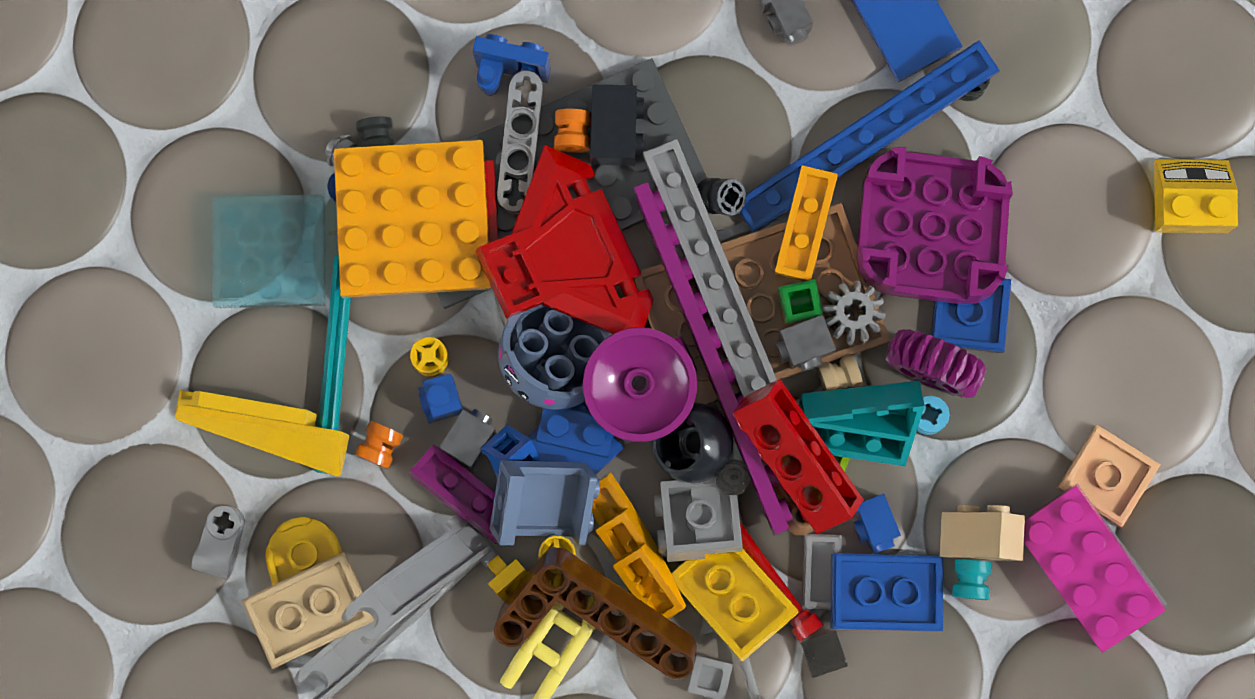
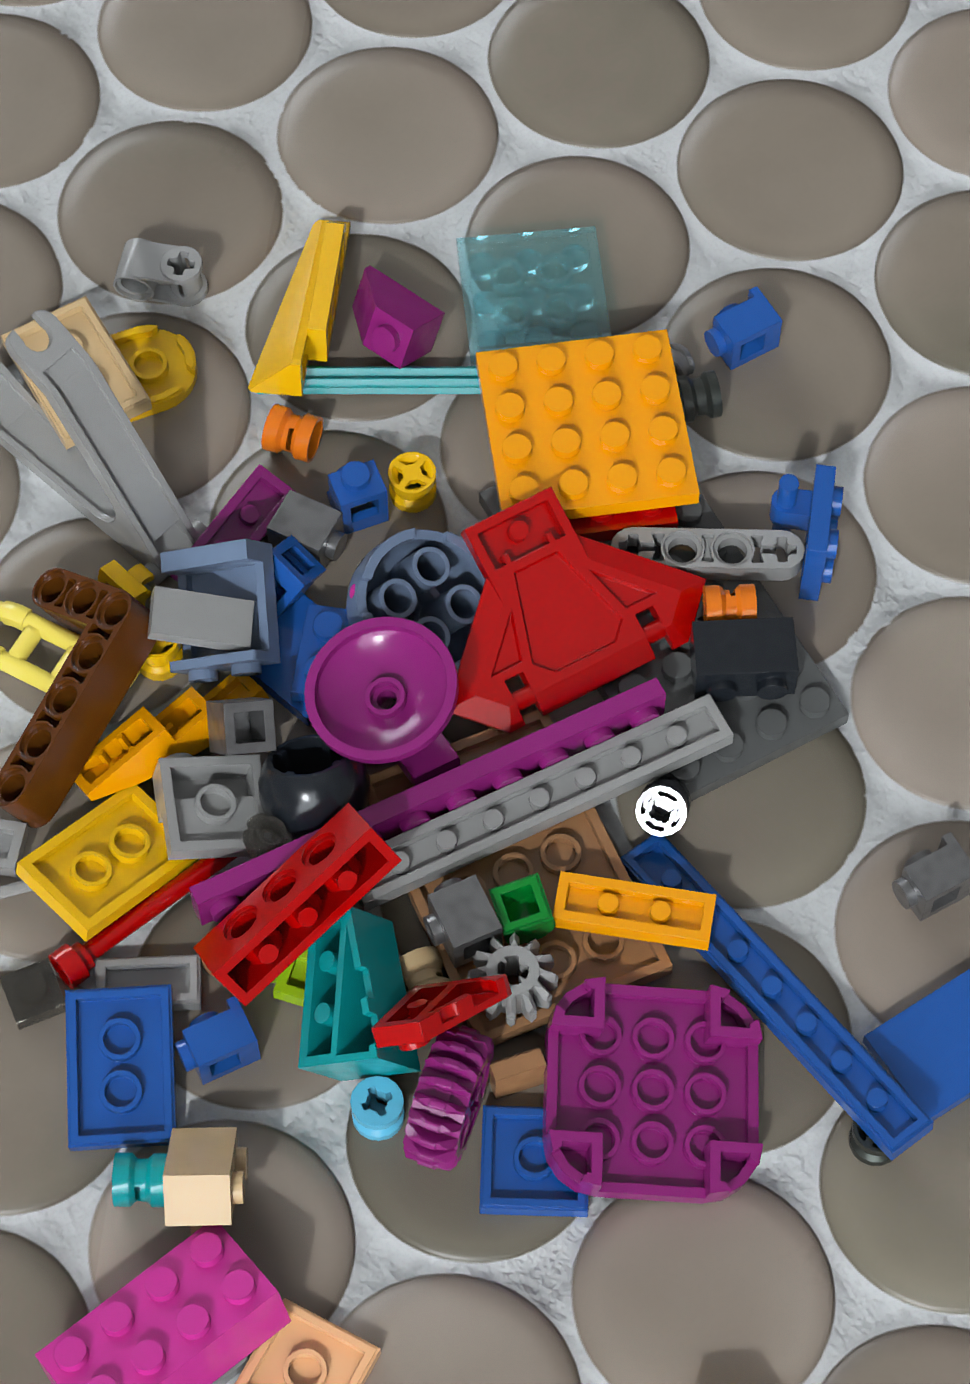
camera: 85 degrees right, 20 degrees down
(284, 361) = (394, 319): none -> magenta slope
(318, 94) = (744, 330): none -> blue brick
(559, 516) = (200, 619): none -> light grey tile
(645, 491) = (241, 725): none -> flat silver brick
(886, 364) = (437, 1008): none -> red wing
(911, 314) = (517, 1072): none -> medium nougat tile

